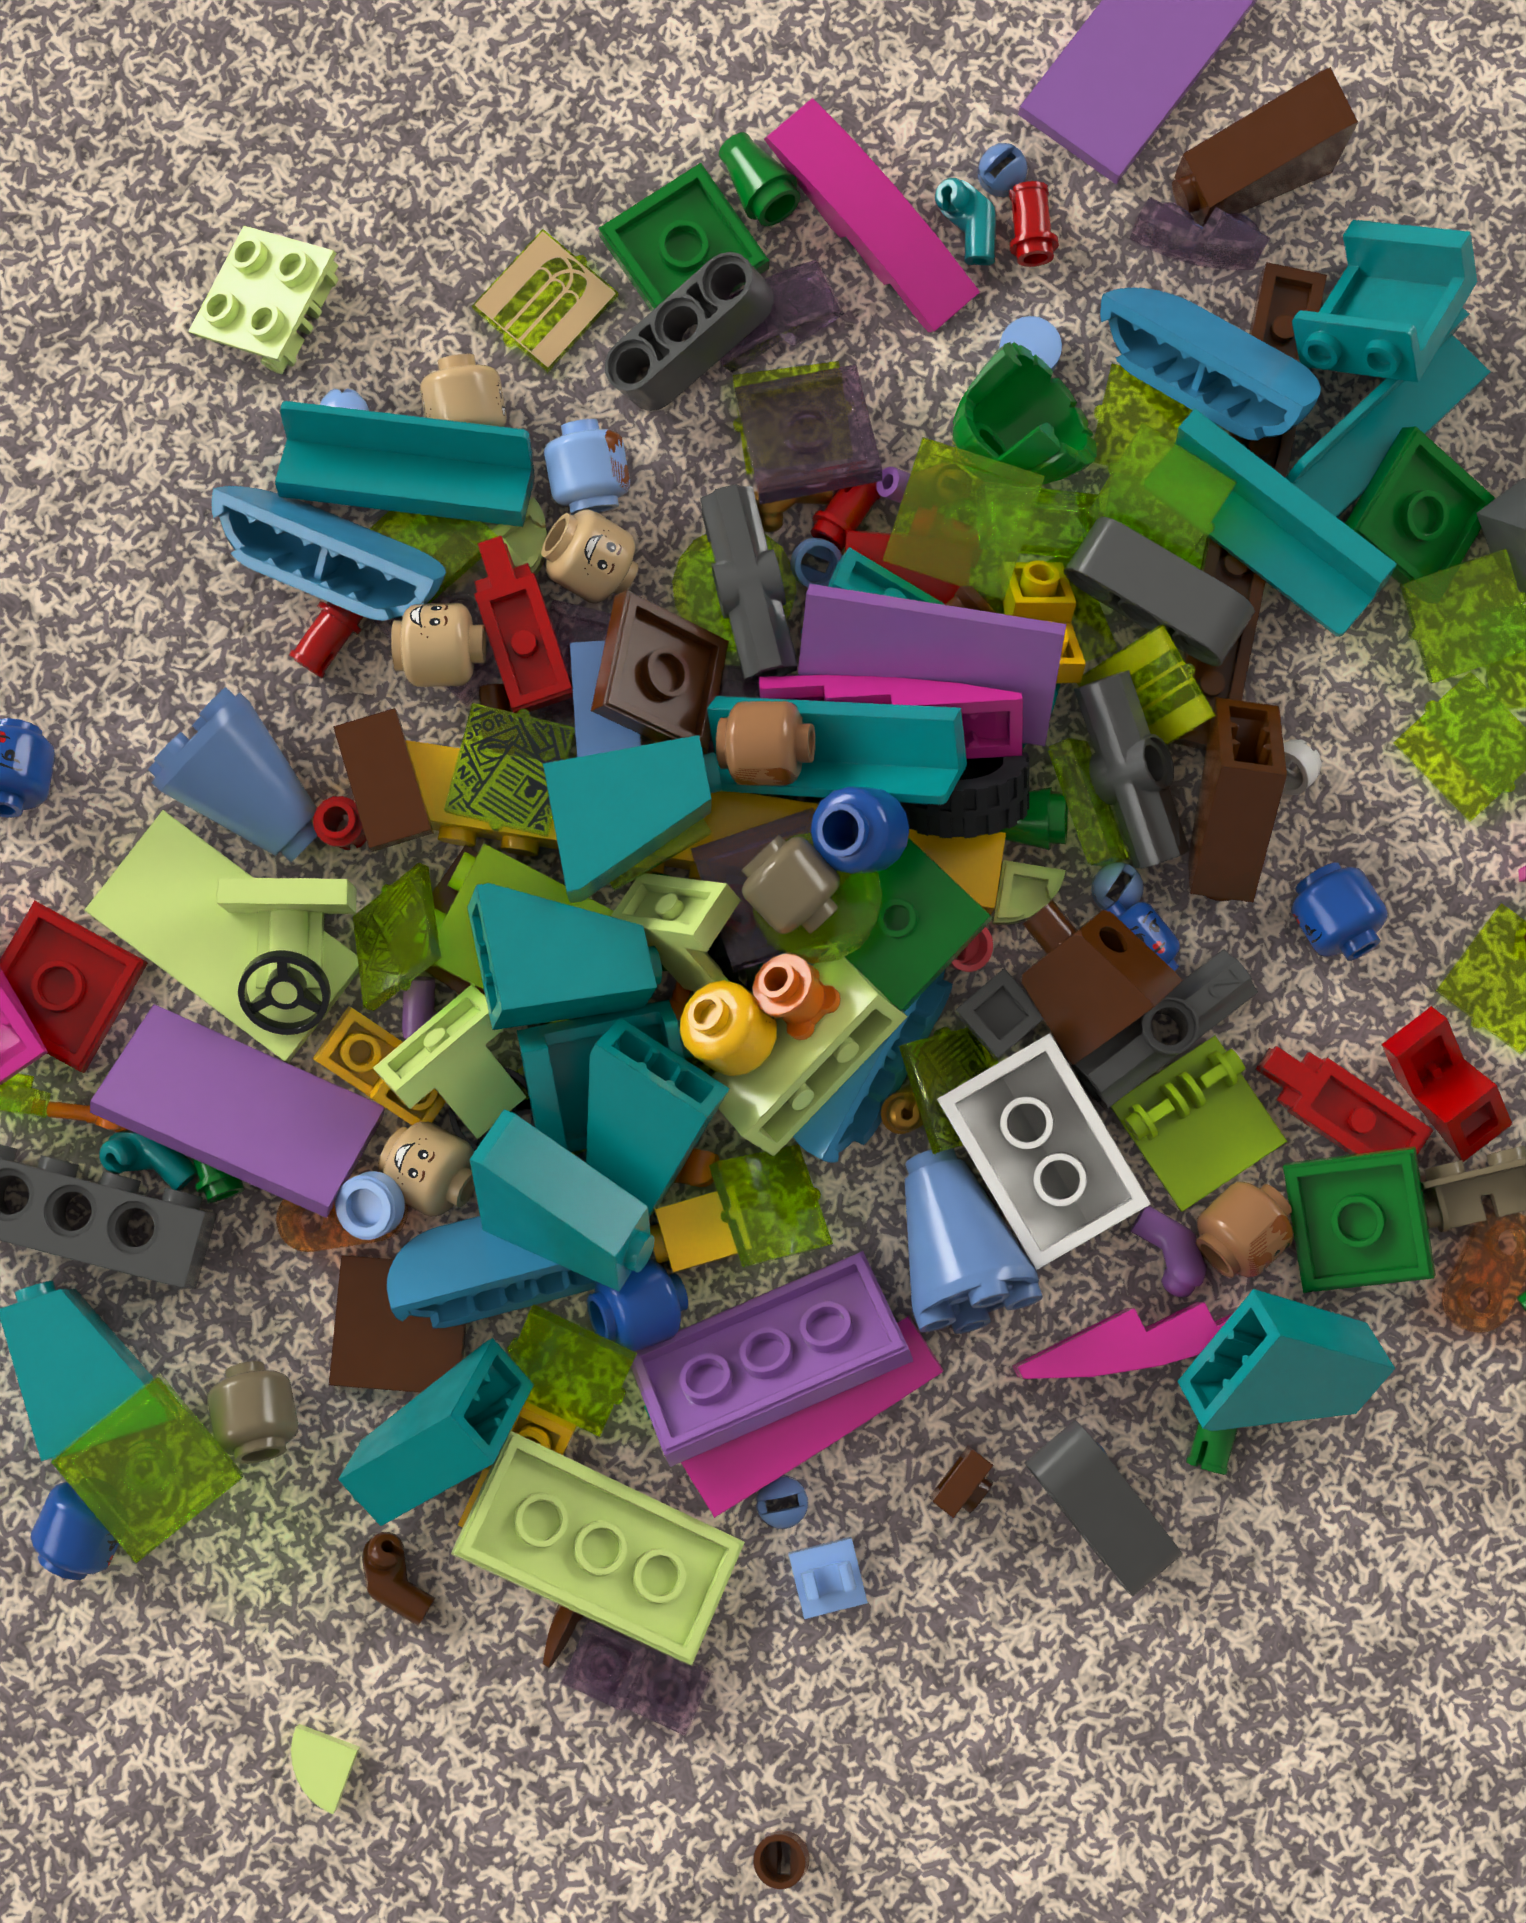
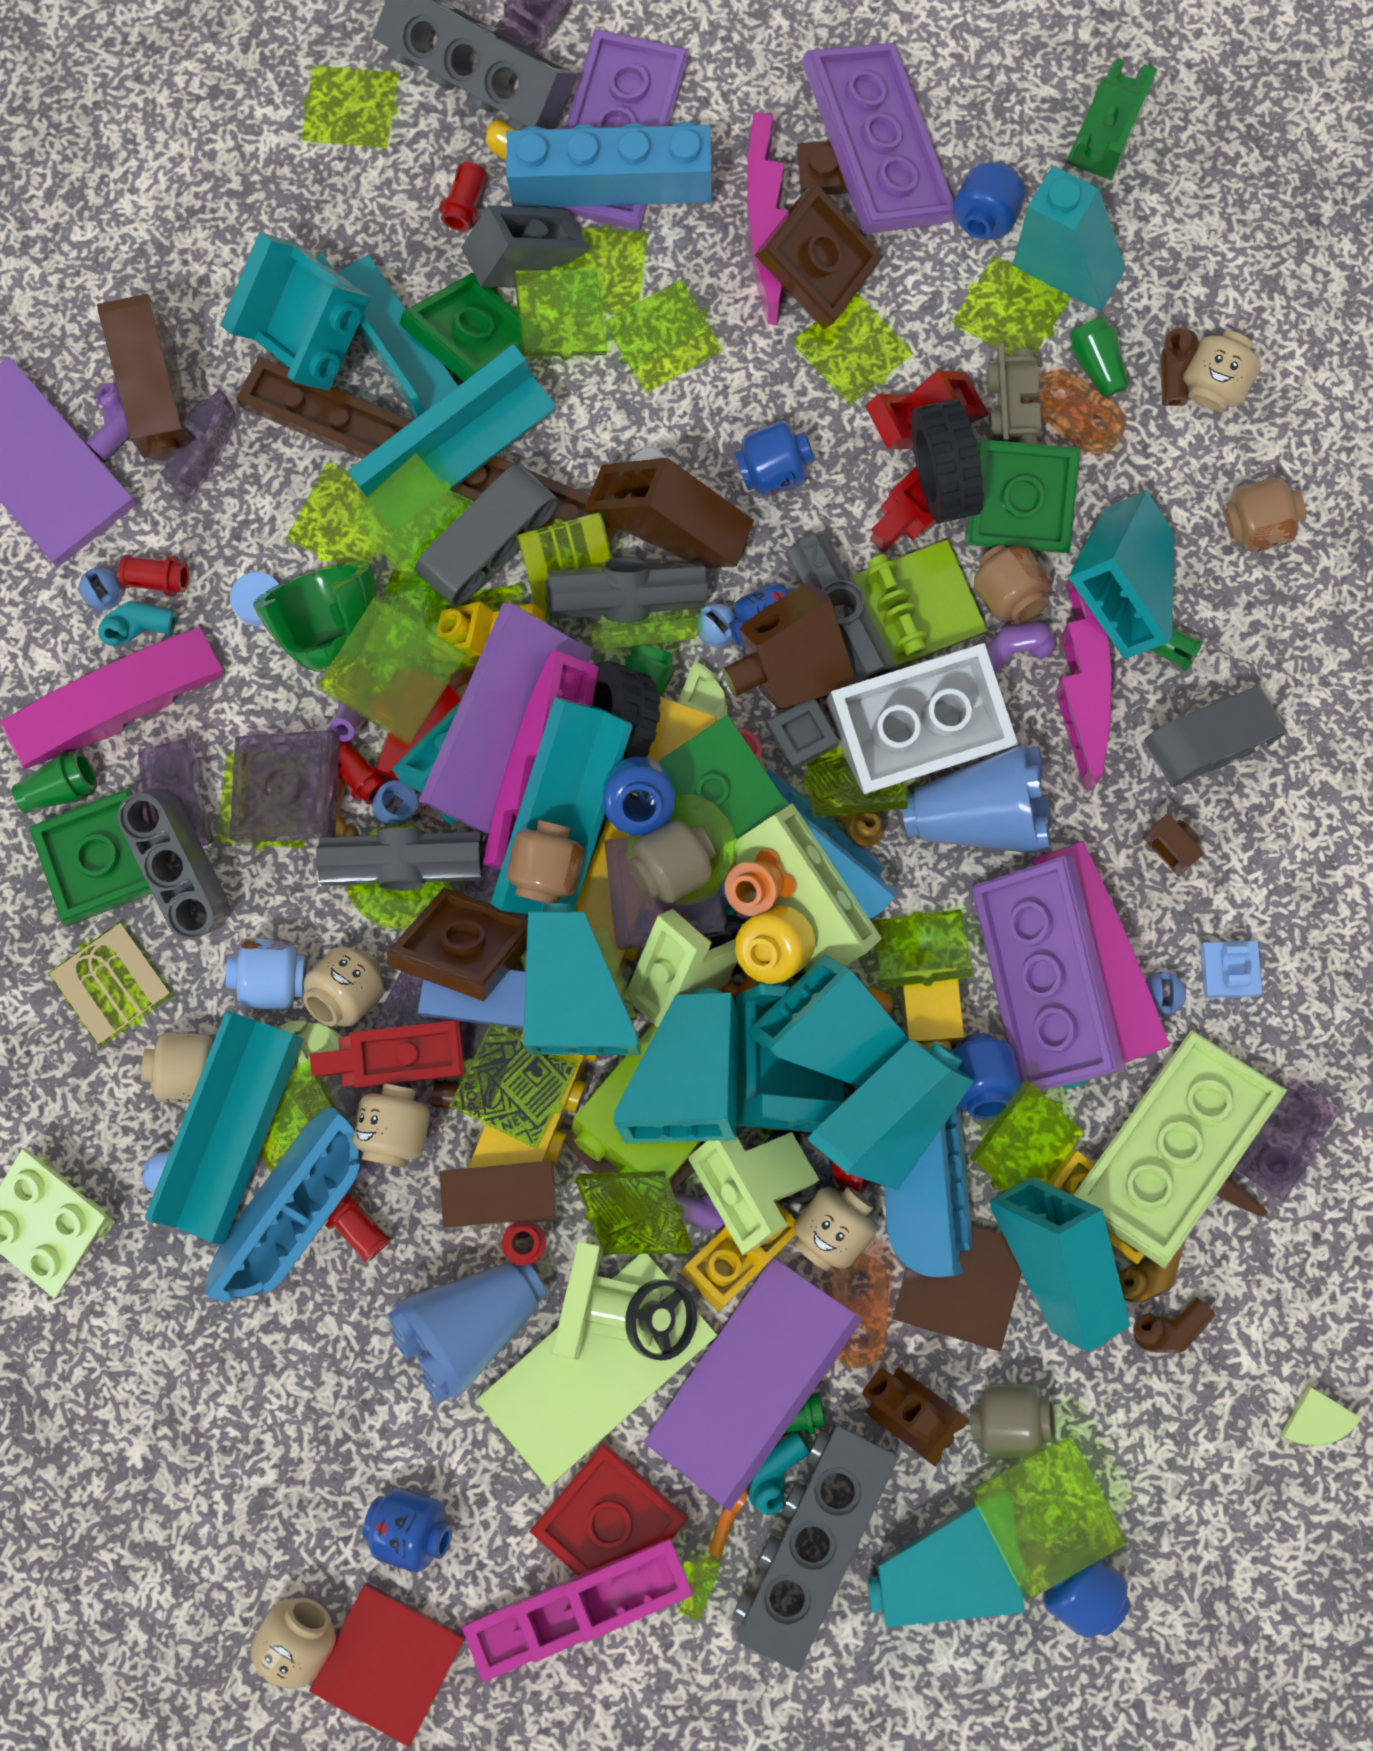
camera: 70 degrees left, 5 degrees down
(236, 1296) = (913, 1413): none -> reddish brown hips
(370, 1205) = (858, 1280): light blue tile -> none
(437, 1535) = (1149, 1279): none -> pearl gold arm
(1191, 131) = (115, 428): none -> medium lavender arm
(1208, 363) = (309, 457): dark azure brick -> none
(1369, 1114) = (947, 460): none -> black tyre
(1404, 1523) = (1264, 514): none -> medium nougat head

